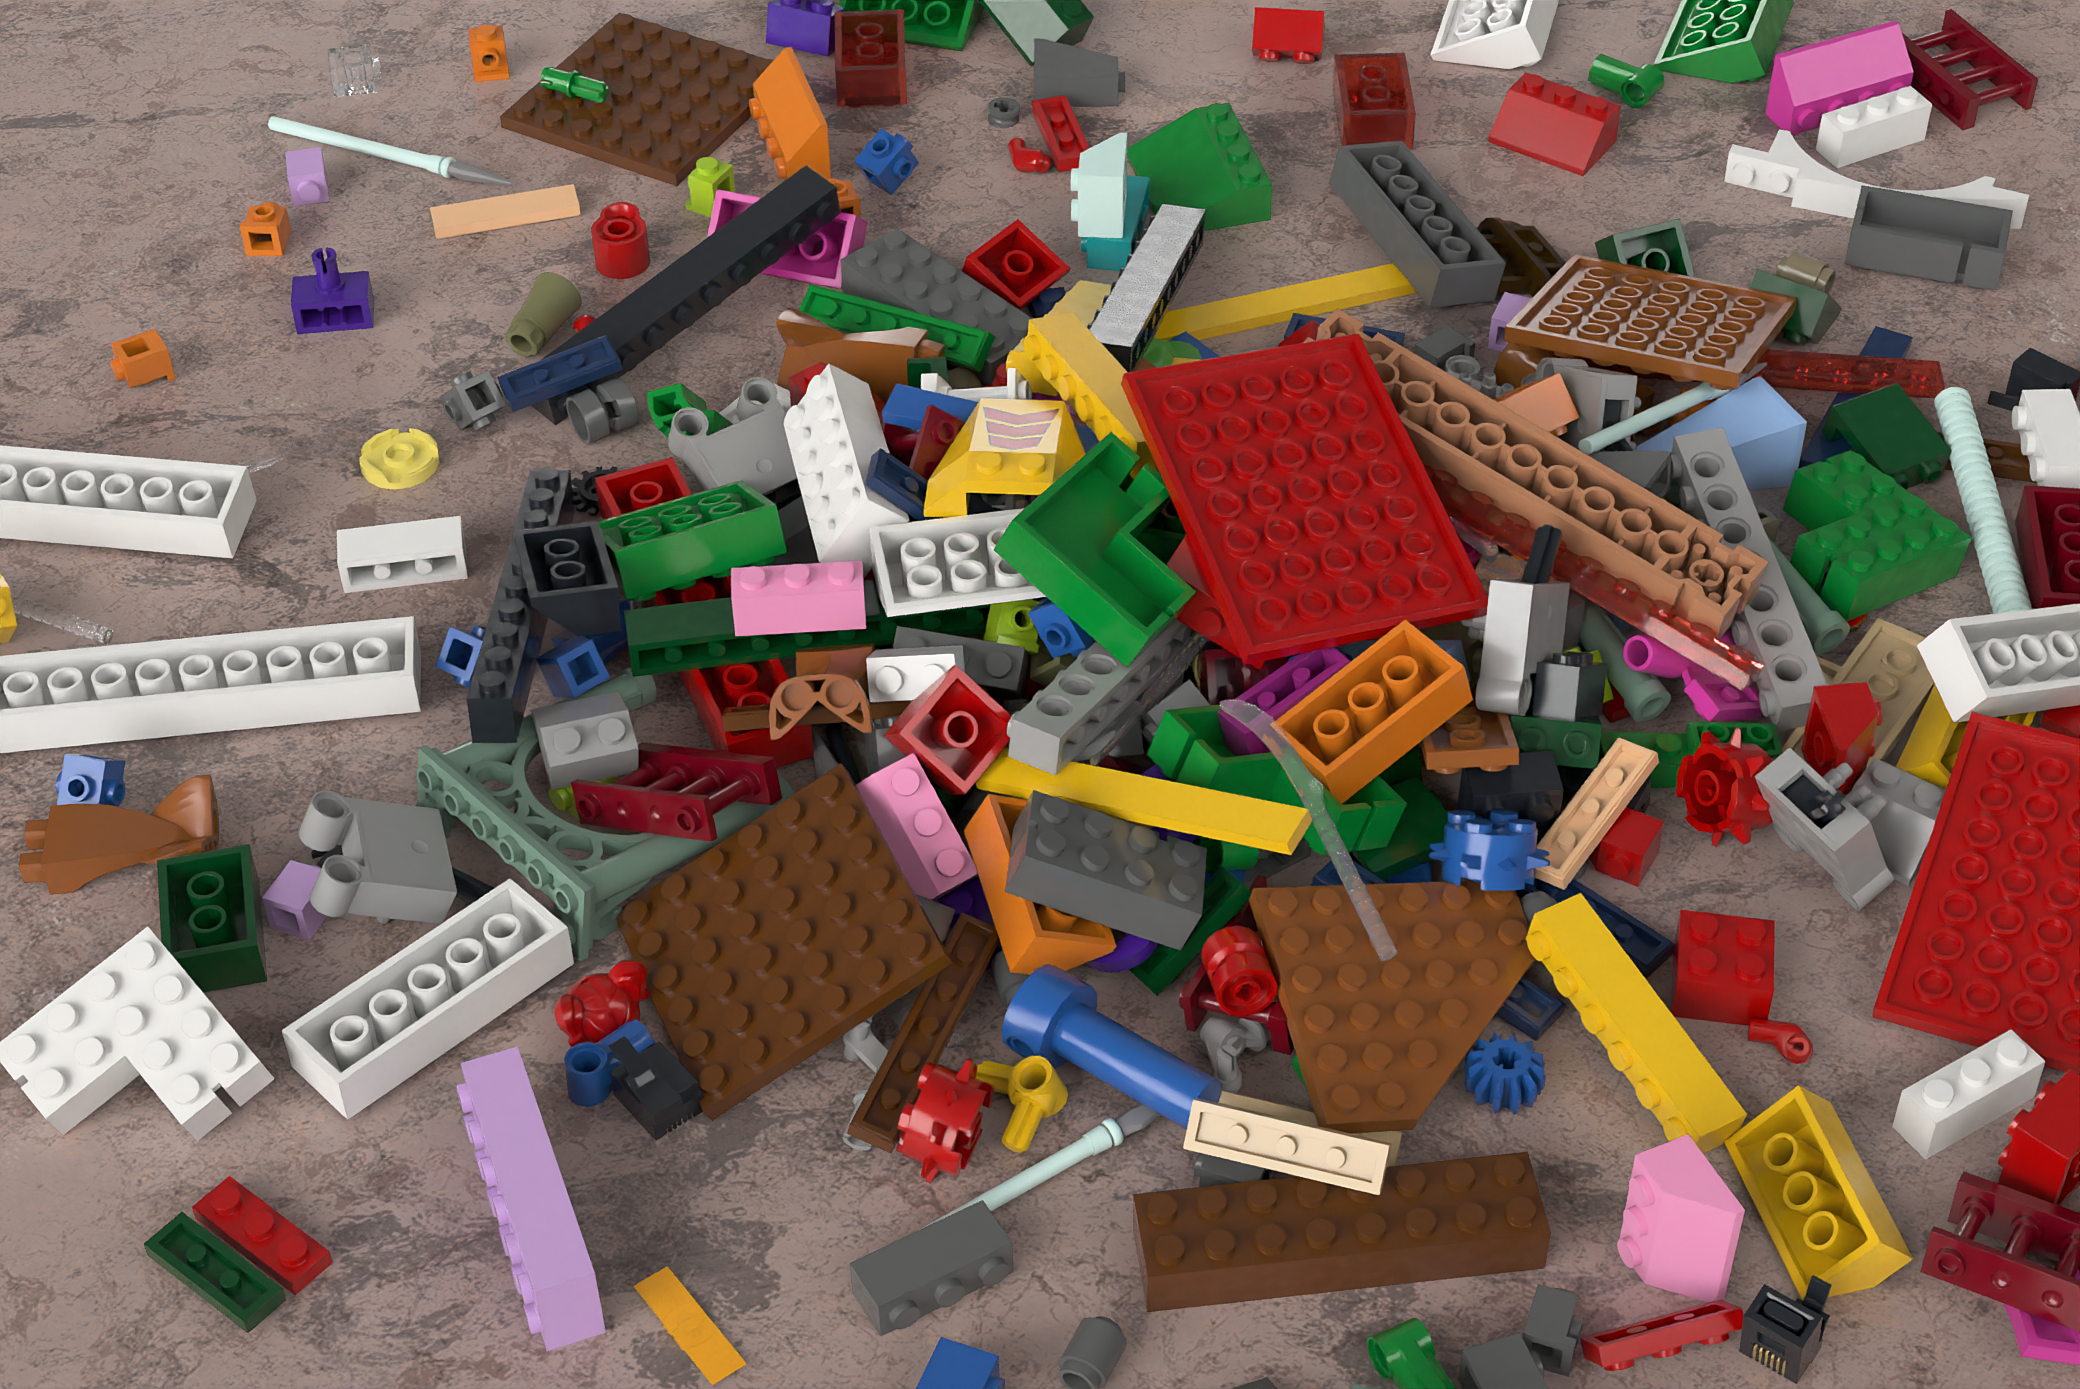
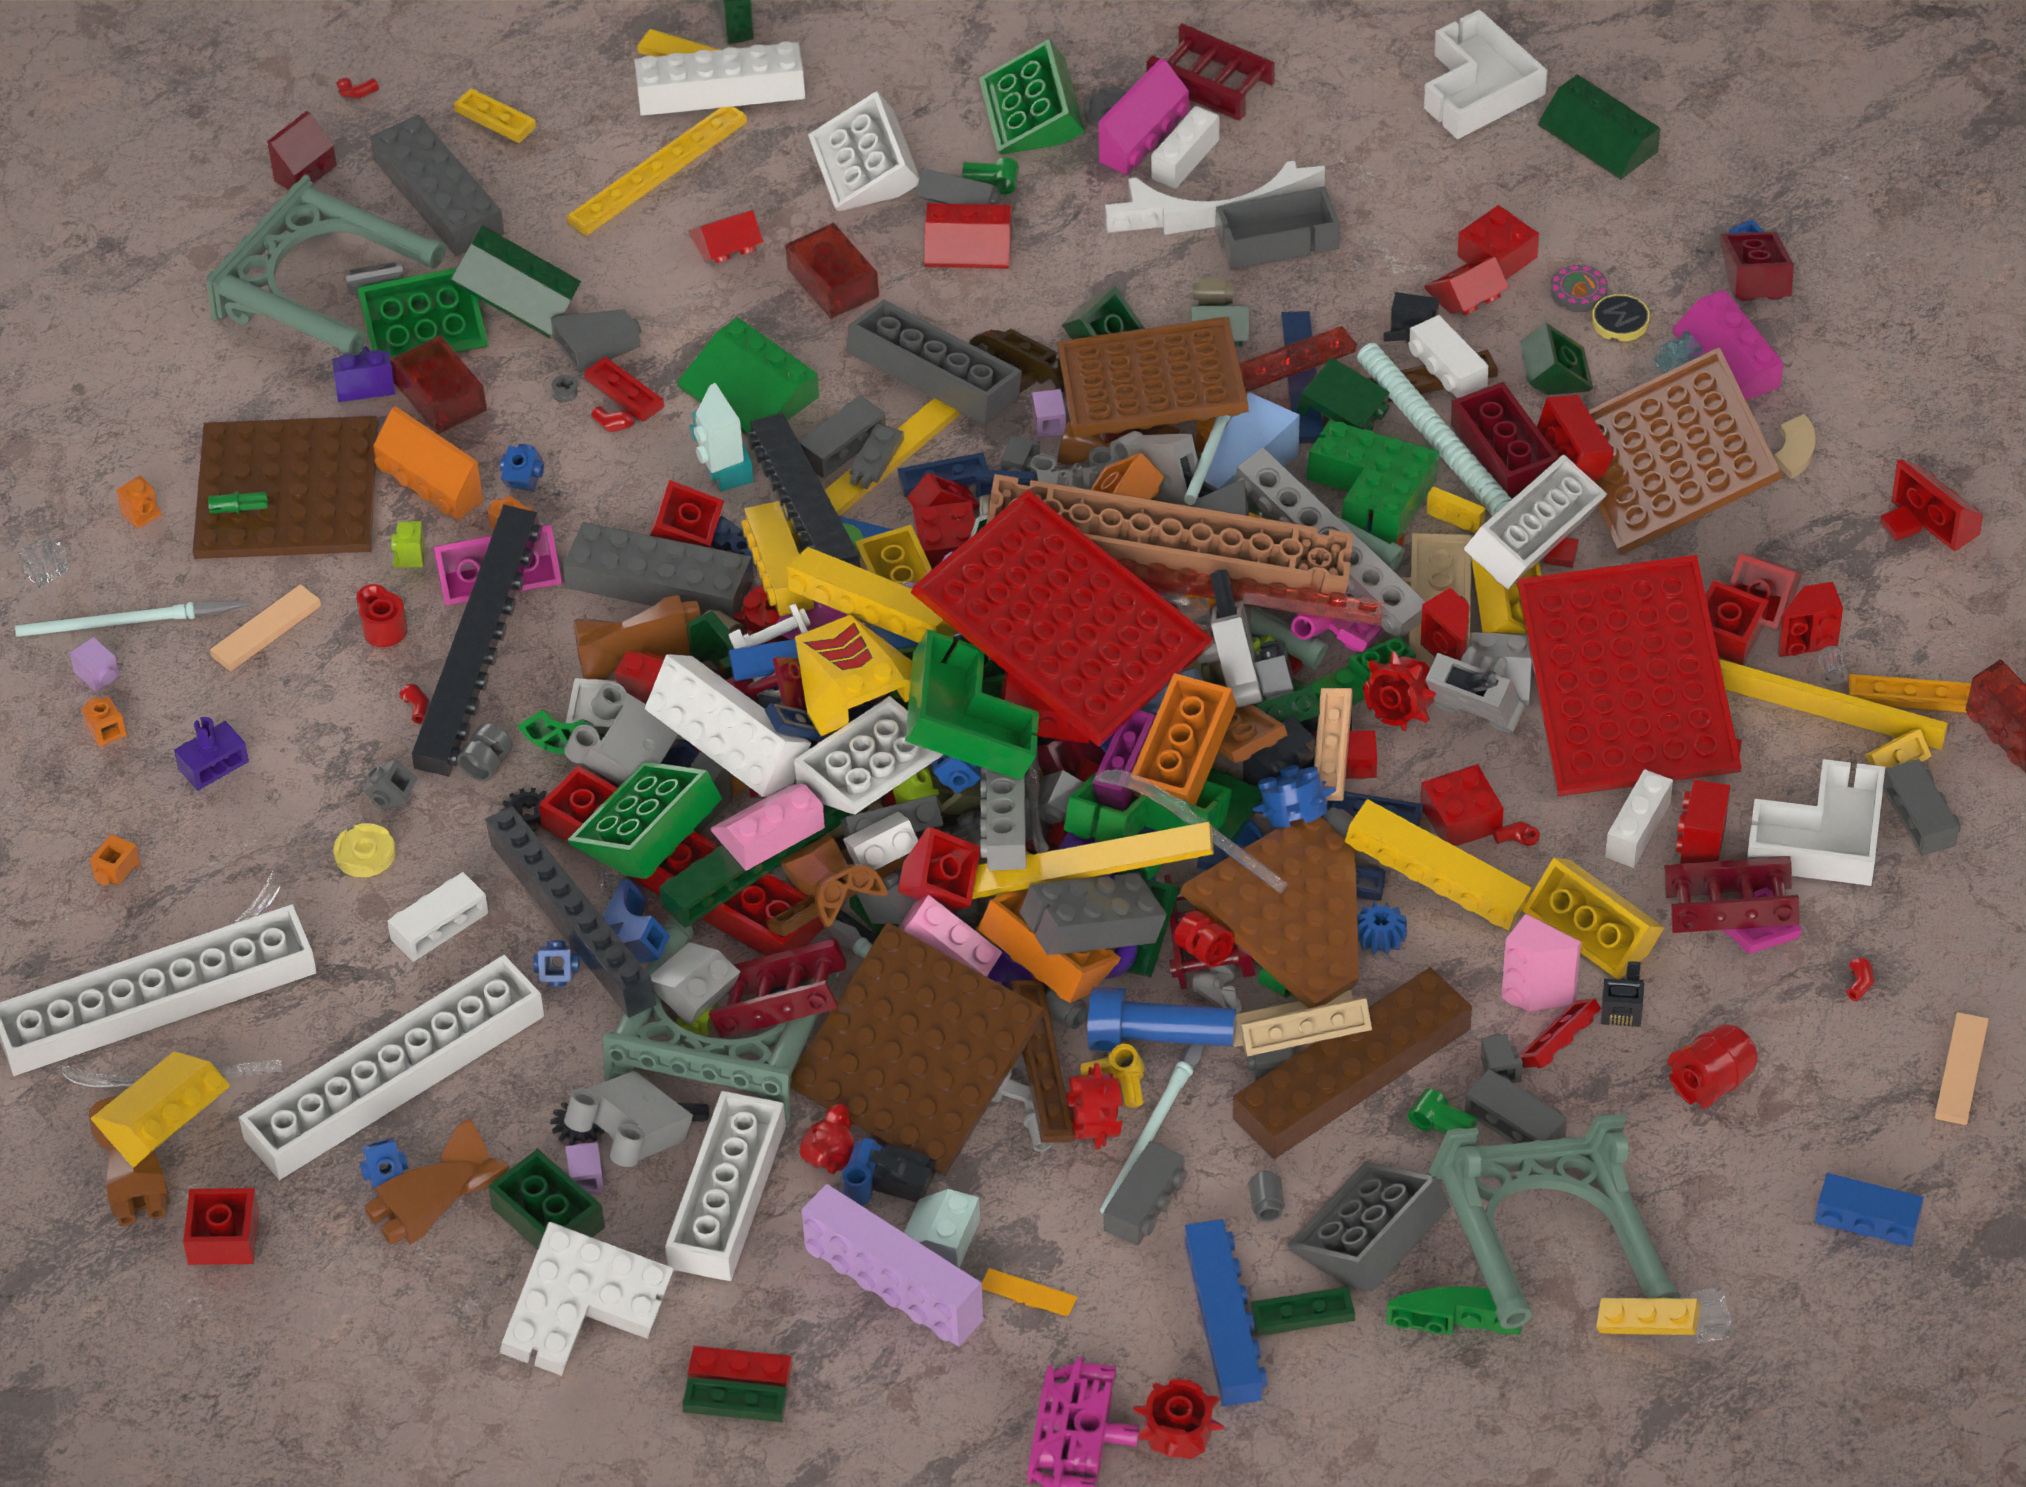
camera: 30 degrees left, 5 degrees up
(542, 313) = (375, 697): olive plant -> none
(559, 373) = (443, 738): dark blue tile -> none
(570, 577) = (610, 877): black slope -> none
(645, 1187) = (945, 1223): none -> light aqua slope
(851, 314) = (635, 599): green tile -> none
(1258, 260) = (841, 436): none -> dark grey brick
(1279, 292) = (875, 455): none -> dark grey hinge
(1558, 64) = (947, 188): none -> dark grey slope
(1944, 602) = (1455, 510): none -> yellow plate

